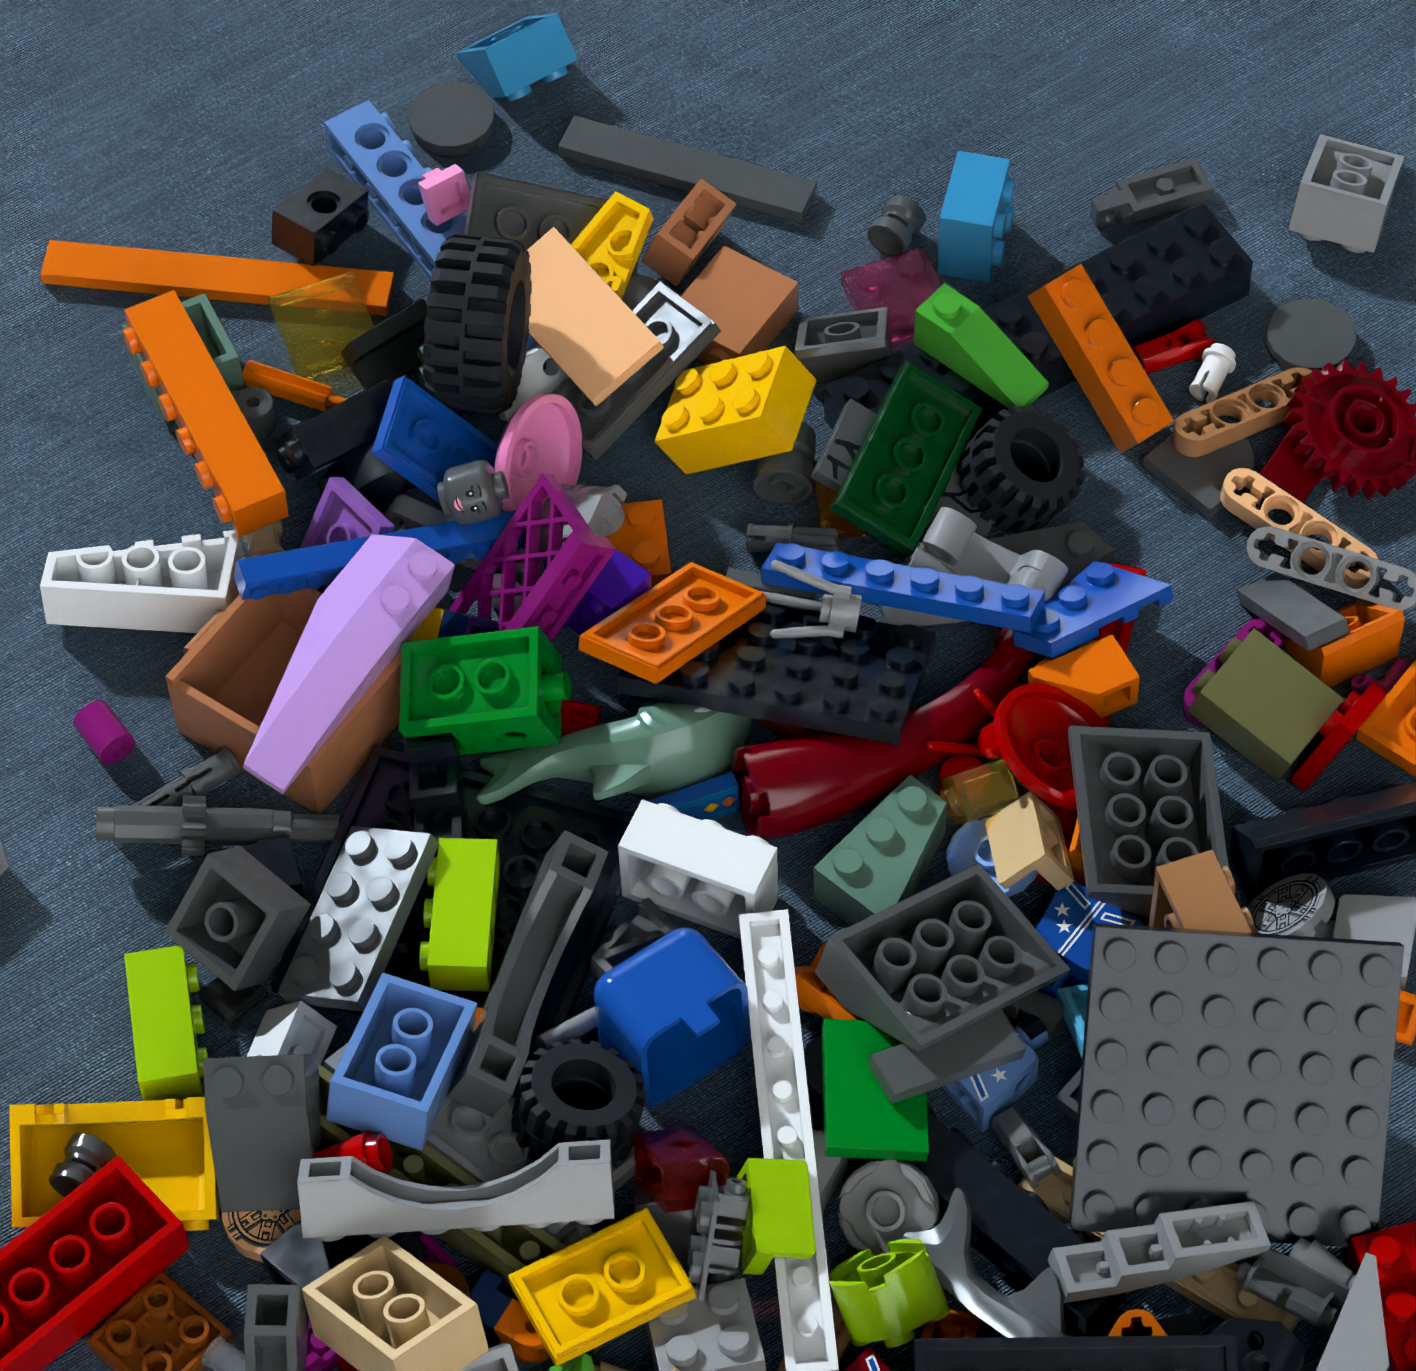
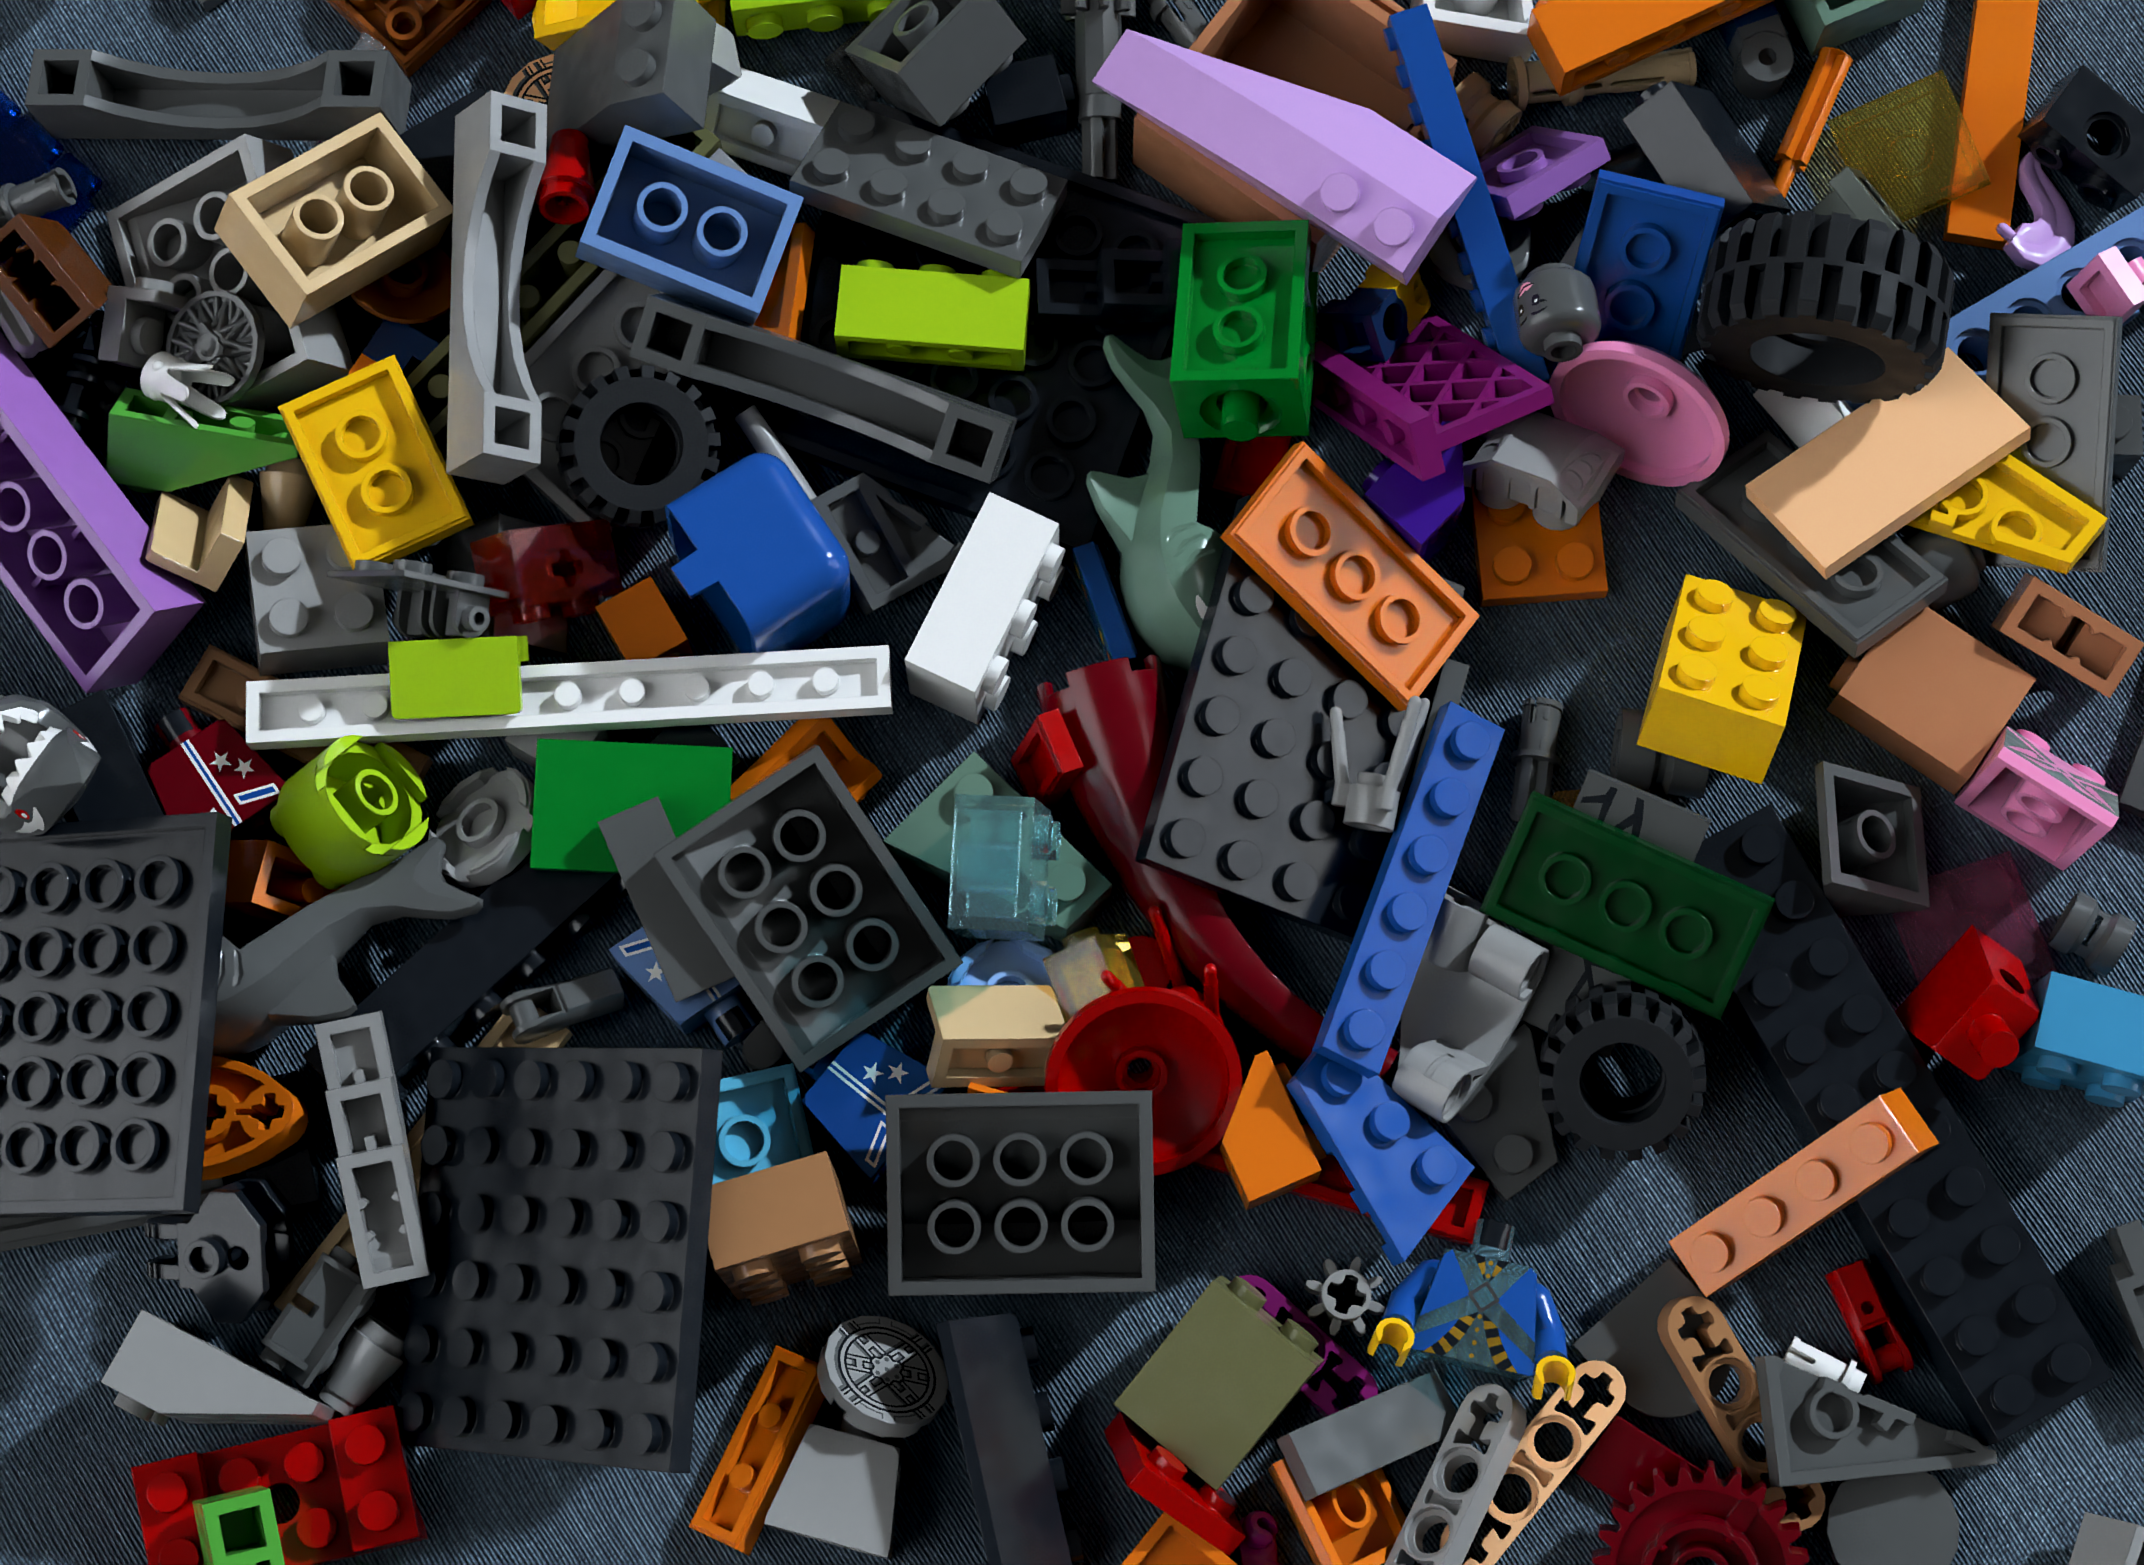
camera: 90 degrees right, 20 degrees up
(391, 252) = (2052, 226): none -> lavender piece
(722, 1111) = (643, 624): none -> orange brick
(814, 237) = (2039, 798): none -> bright pink slope
(815, 822) = (1047, 759): none -> red tile
(917, 813) = (1002, 868): none -> clear light blue brick
(966, 263) = (1973, 1005): none -> red torso
(976, 348) = (1804, 1014): bright green slope -> none
(1193, 640) = (1361, 1292): none -> light grey gear
(1200, 554) = (1479, 1314): none -> torso
(1257, 348) = (1830, 1433): none -> dark grey wing

